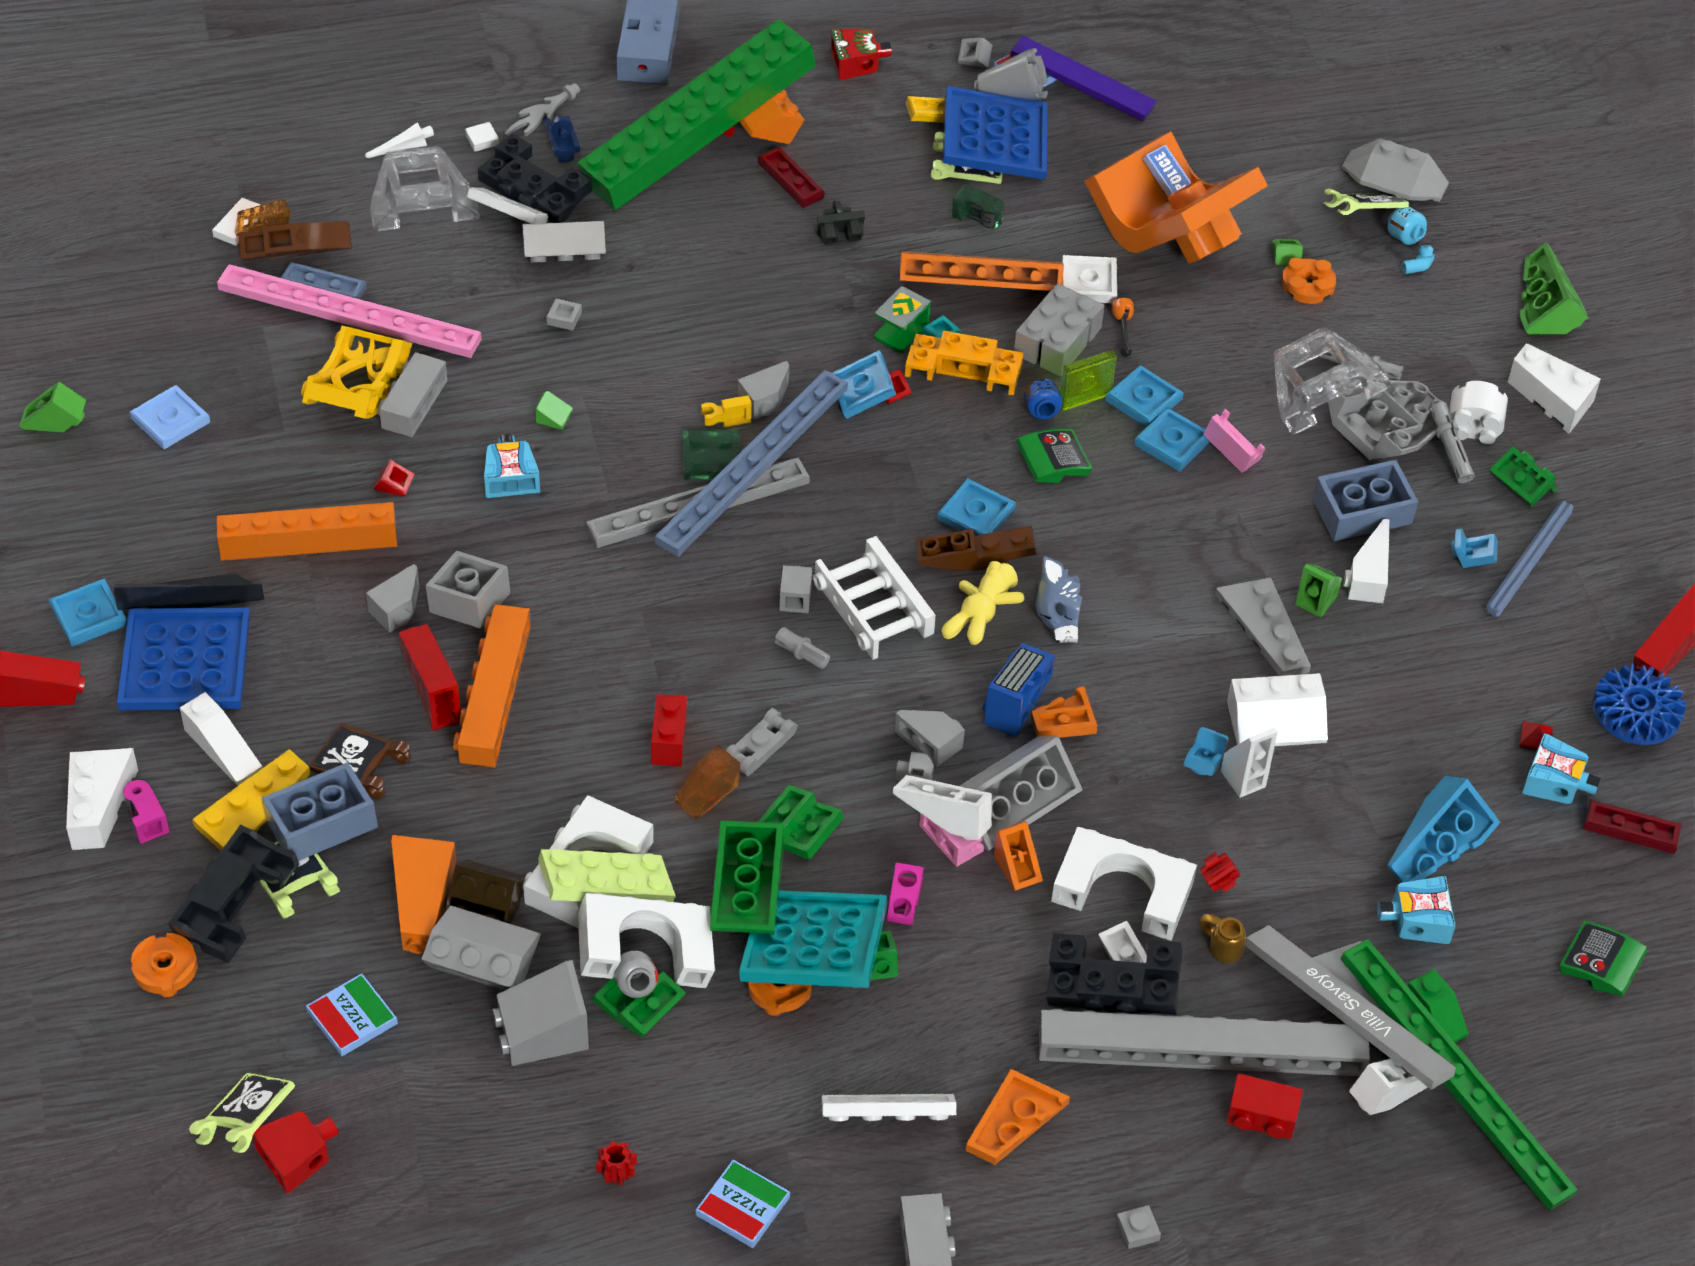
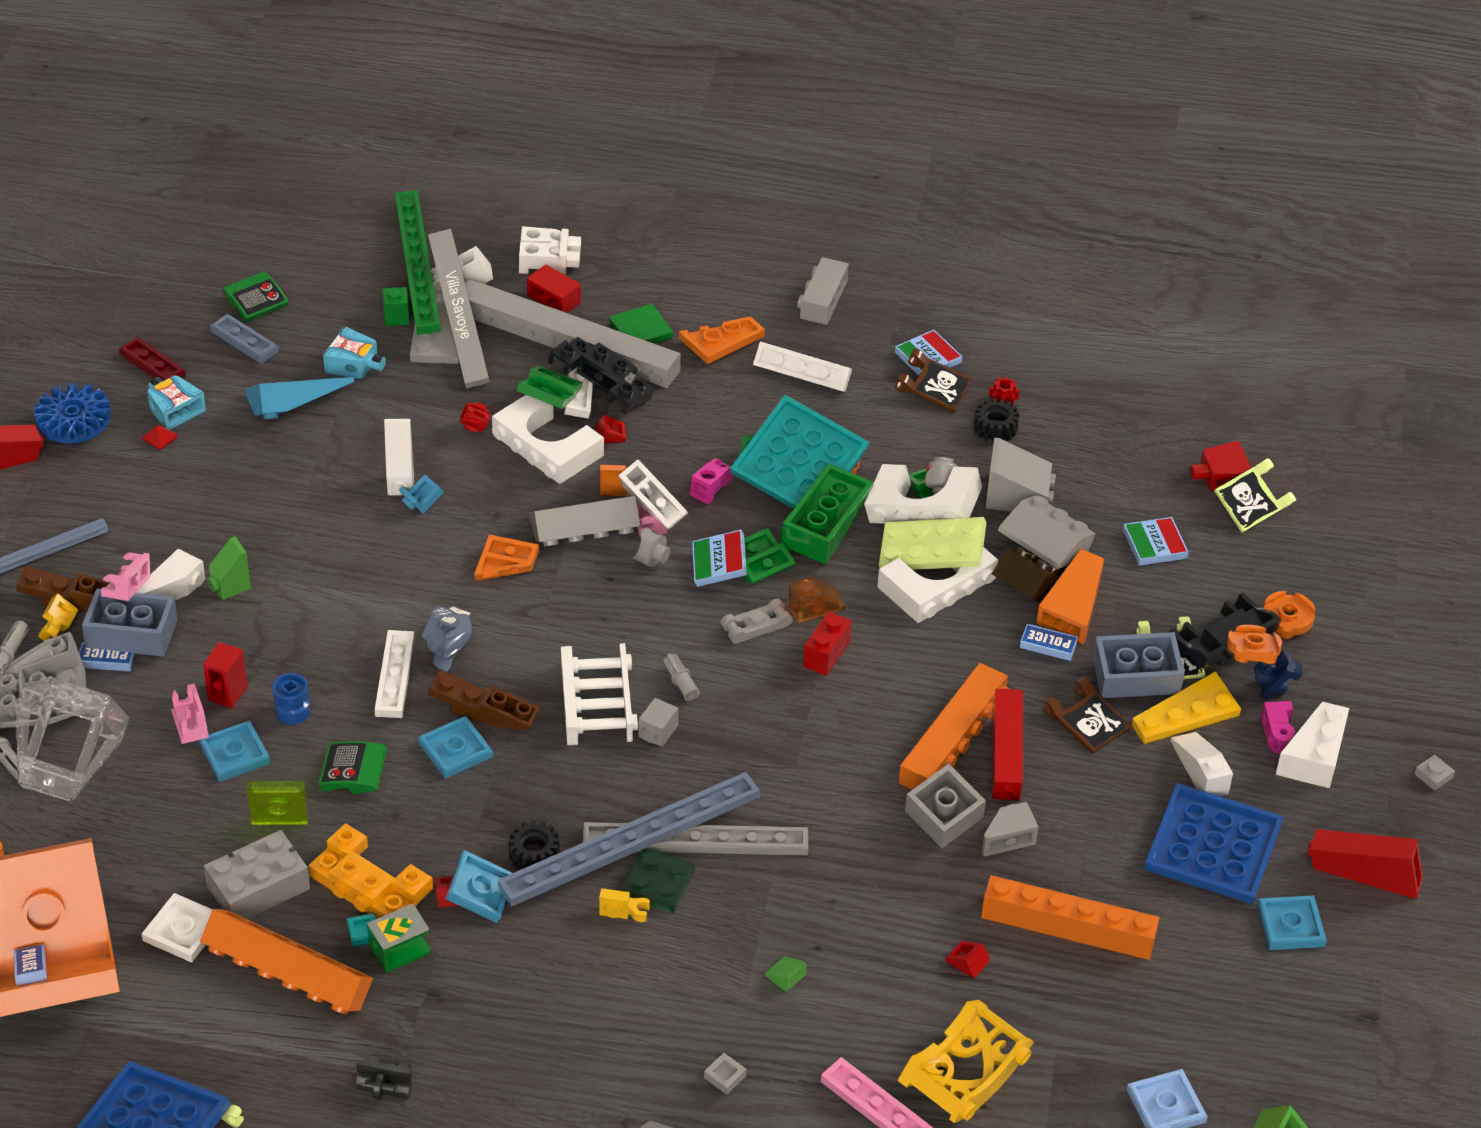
camera: 155 degrees left, 5 degrees down
(158, 854) = (1275, 676): none -> dark blue hips
(185, 862) = (1254, 644): none -> orange plate
(188, 593) = (1200, 900): black wedge -> none
(412, 394) = (915, 1029): light grey brick -> none
(436, 828) = (1048, 642): none -> tile
(510, 468) = (856, 919): torso -> none
(609, 1101) = (996, 411): none -> black tyre
(709, 1150) = (935, 382): none -> flag
(765, 389) = (573, 915): light grey slope -> none
(838, 789) = (719, 558): none -> tile
(839, 450) = (532, 834): none -> black tyre
(930, 733) = (619, 576): light grey slope -> none
(978, 206) = (228, 1051): clear green leg -> none
(982, 601) = (514, 655): light yellow animal -> none
(1017, 689) = (531, 580): blue wedge -> none
(1043, 399) = (324, 816): blue head -> none
(1060, 923) = (611, 430): none -> red slope
(1083, 554) = (394, 674): none -> white plate
(1123, 310) = (180, 883): hinge -> none
(1124, 1101) = (643, 324): none -> green tile
(1138, 1227) = (680, 267): light grey plate -> none
(1143, 396) = (223, 798): dark azure tile -> none
(1155, 485) = (291, 698): none -> blue wheel
(1157, 917) = (550, 387): none -> green slope
(1227, 937) = (502, 382): pearl gold piece -> none
(1230, 475) = (225, 675): none -> red brick
(1267, 623) = (289, 577): light grey wing -> none
(1287, 702) = (338, 509): white slope -> none
(1317, 1170) = (548, 247): none -> white hips
(1396, 513) = (129, 578): none -> bright pink hinge
(1439, 524) = (47, 585): none -> reddish brown slope
(1442, 495) = (59, 616): none -> yellow plate
(1474, 550) = (72, 562): dark azure bracket -> none
(1564, 898) = (244, 338): none -> sand blue tile

